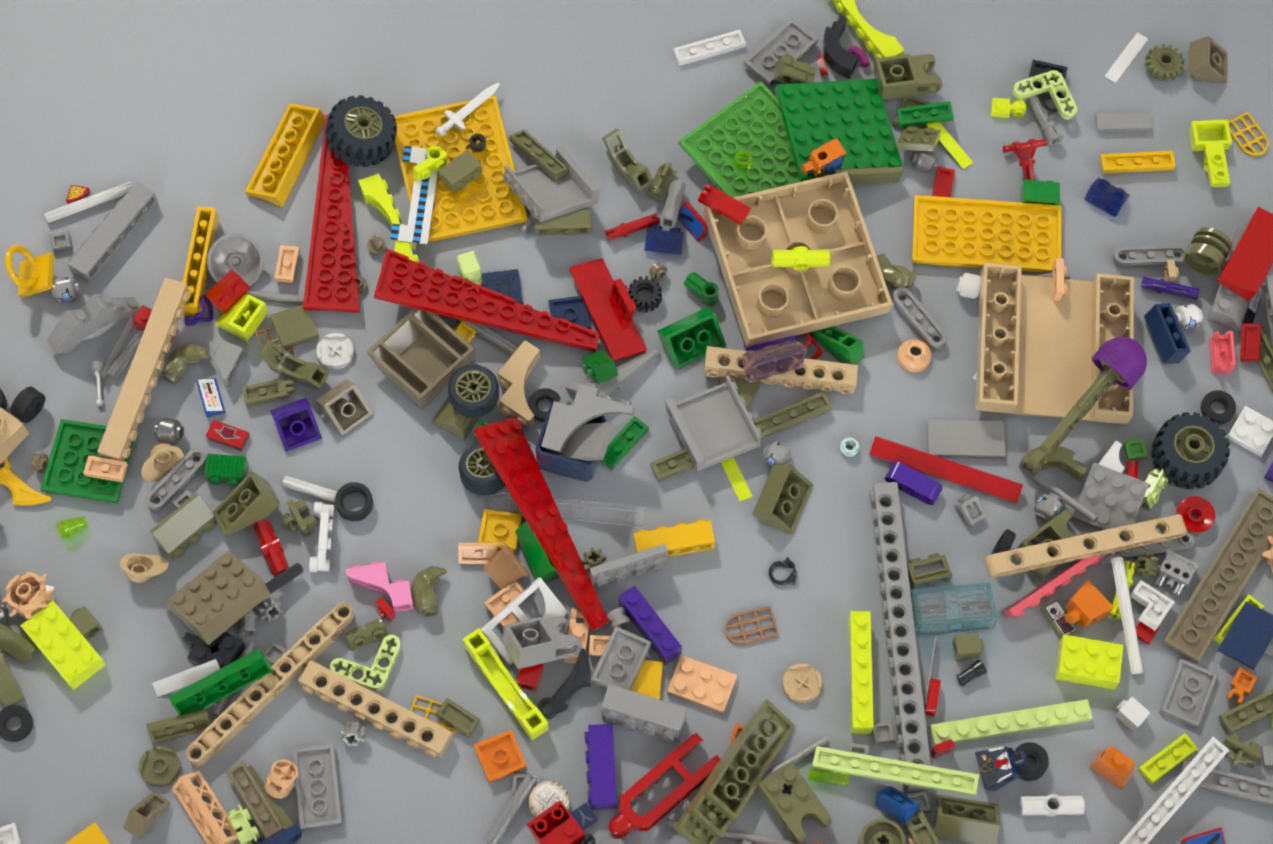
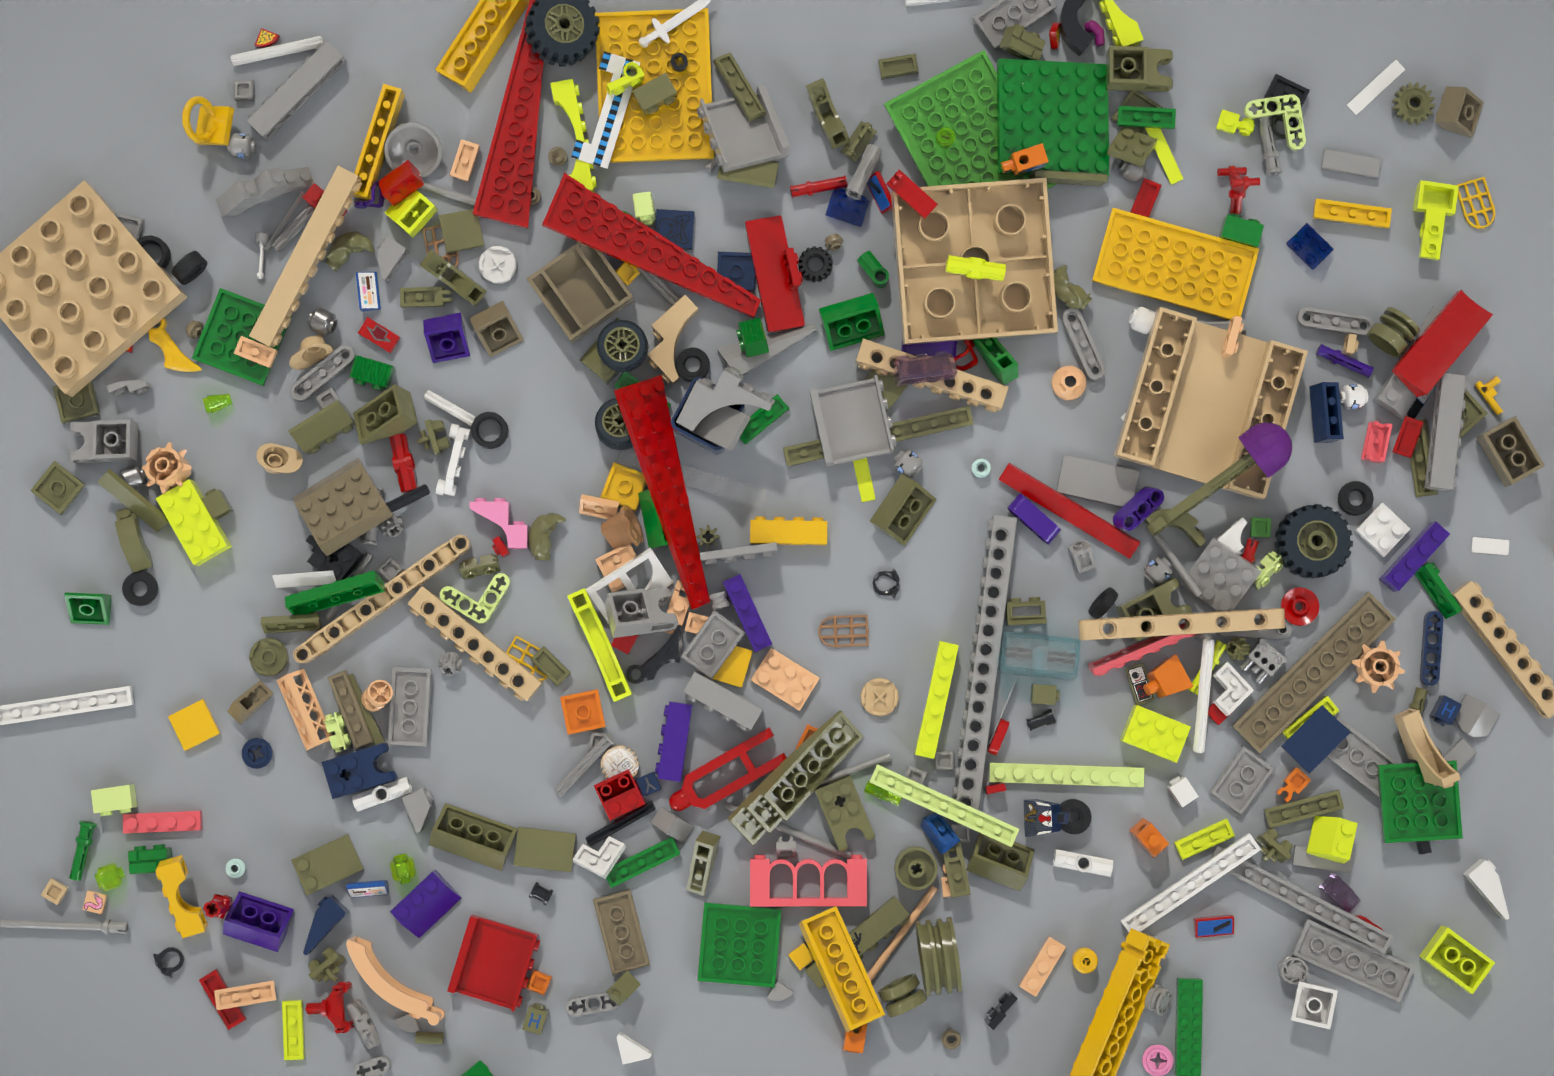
camera: 15 degrees right, 20 degrees up
(683, 114) = (898, 66): none -> olive tile
(1012, 452) = (1146, 507): none -> dark purple beam

